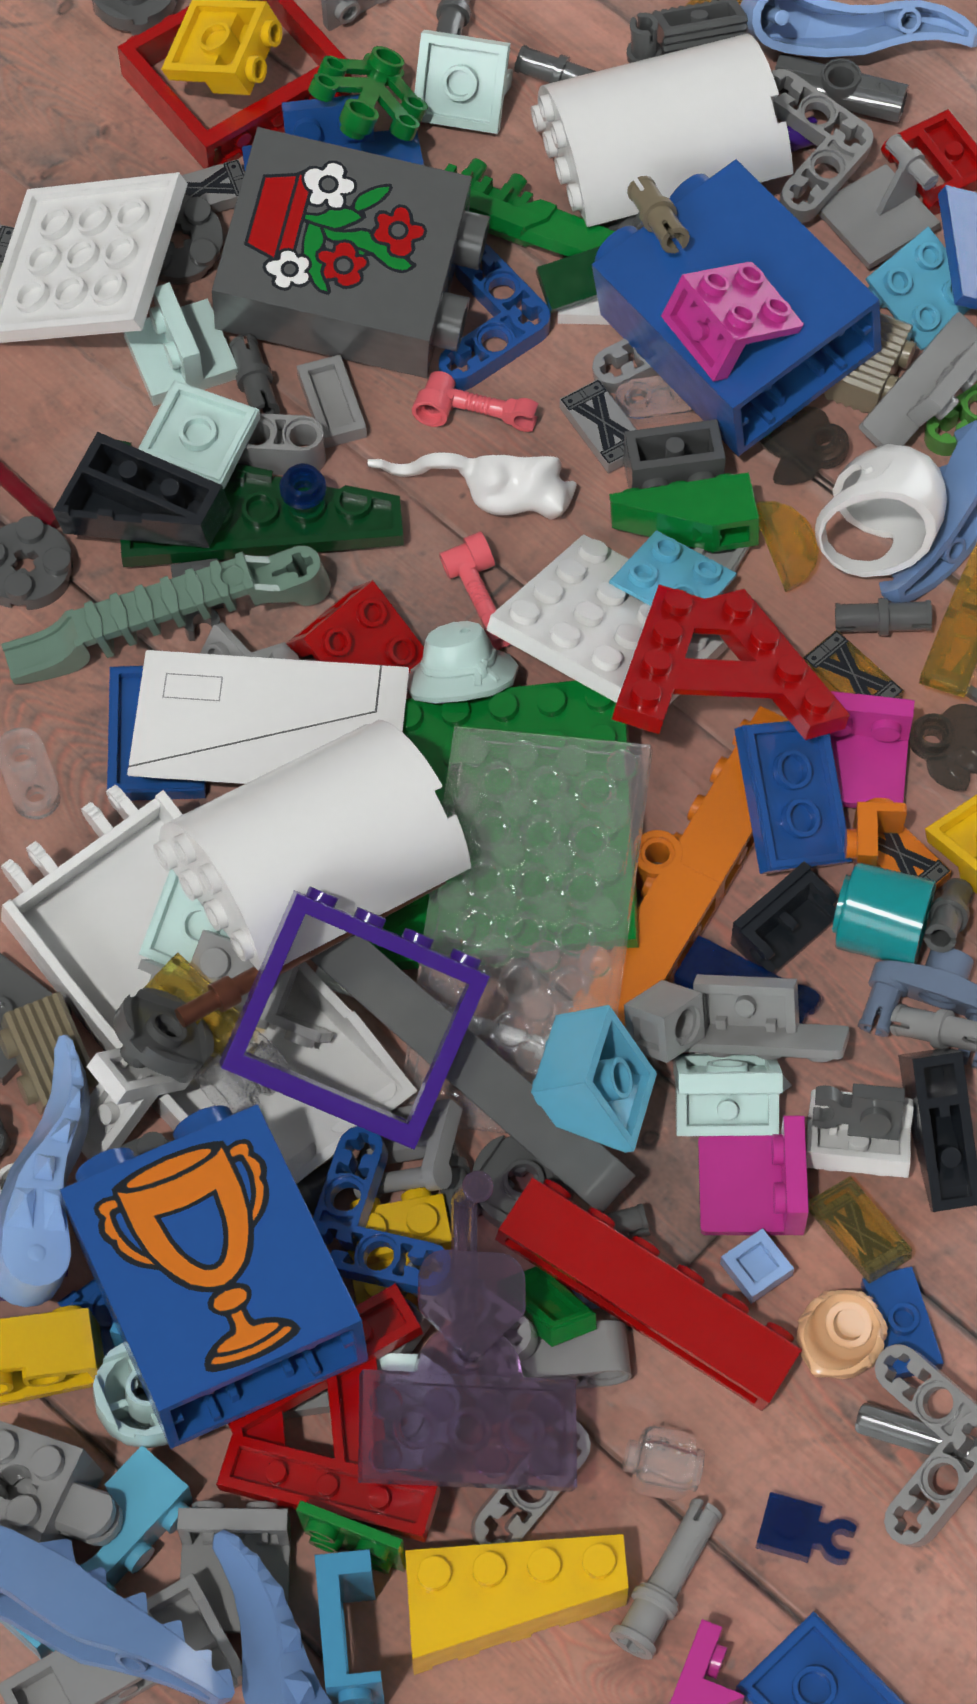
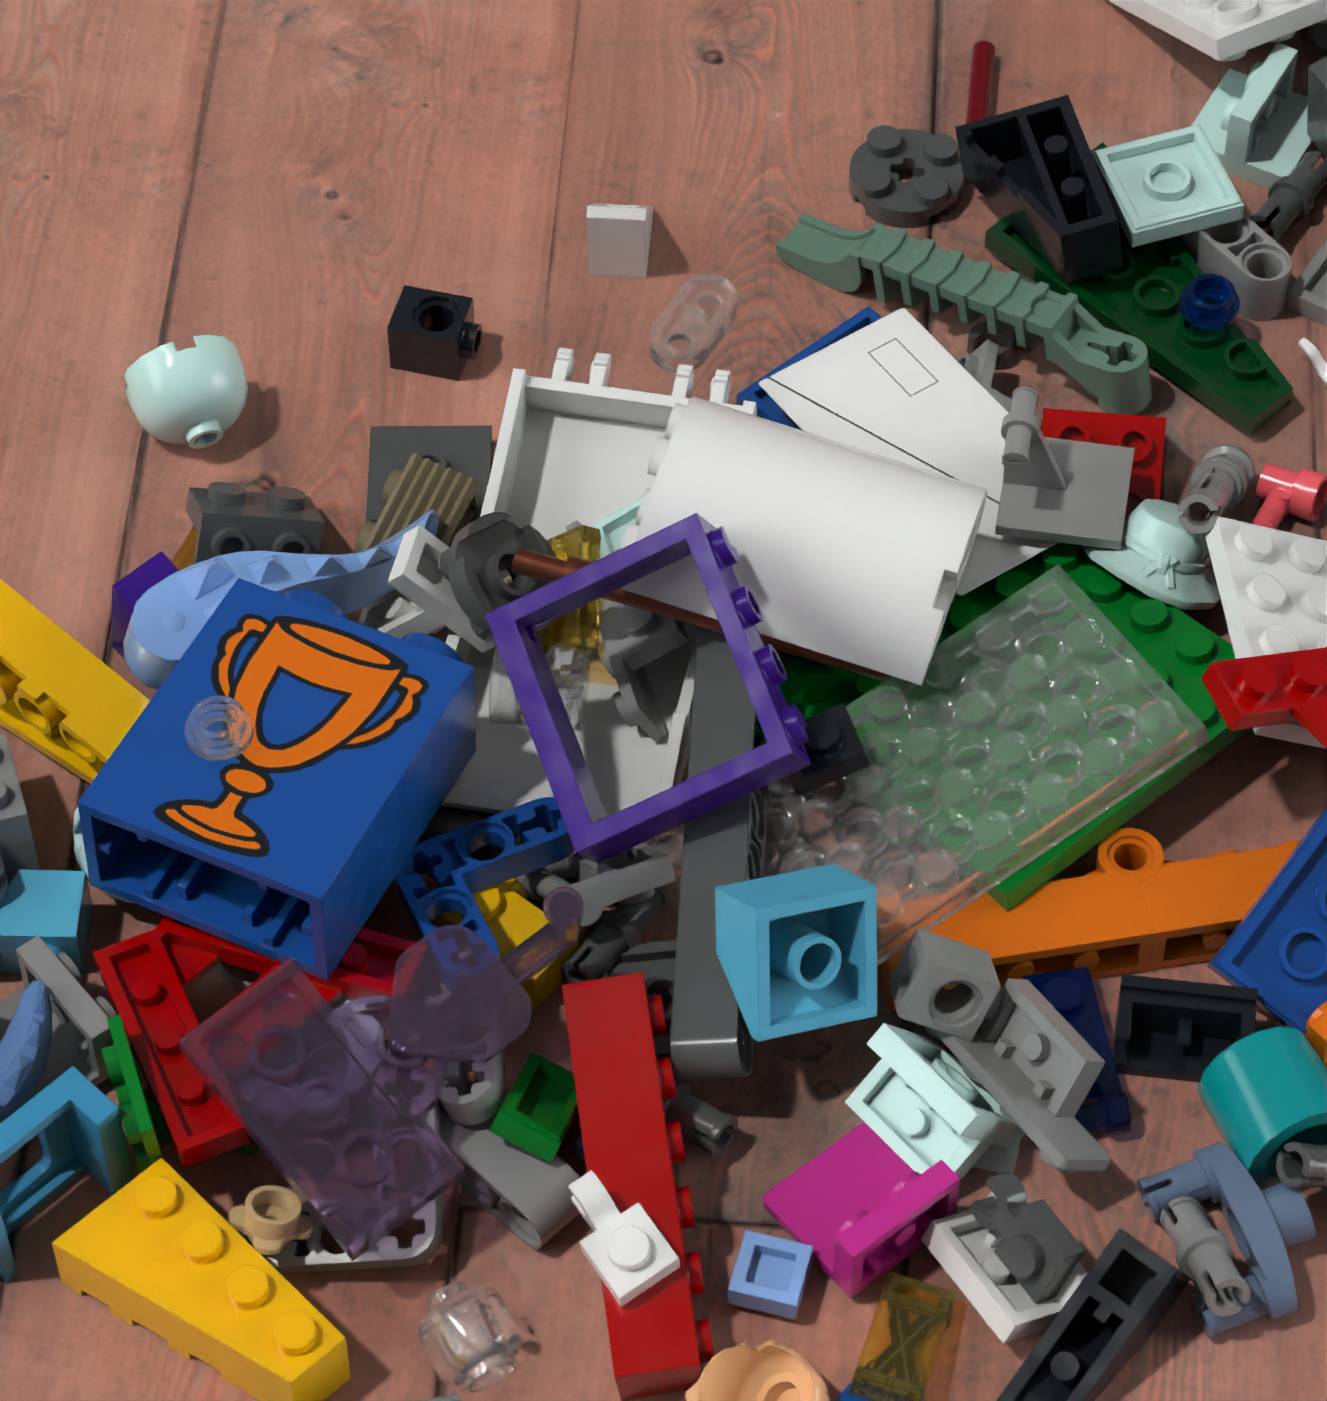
camera: 50 degrees right, 10 degrees down
(180, 1273) = (223, 716): none -> clear plate
(377, 674) = (1060, 485): none -> light grey plate
(441, 594) = (1216, 490): none -> light grey pin
(447, 937) = (832, 750): none -> black bracket
(497, 1506) = (271, 1219): none -> tan plate
(702, 1330) = (624, 1246): none -> white plate

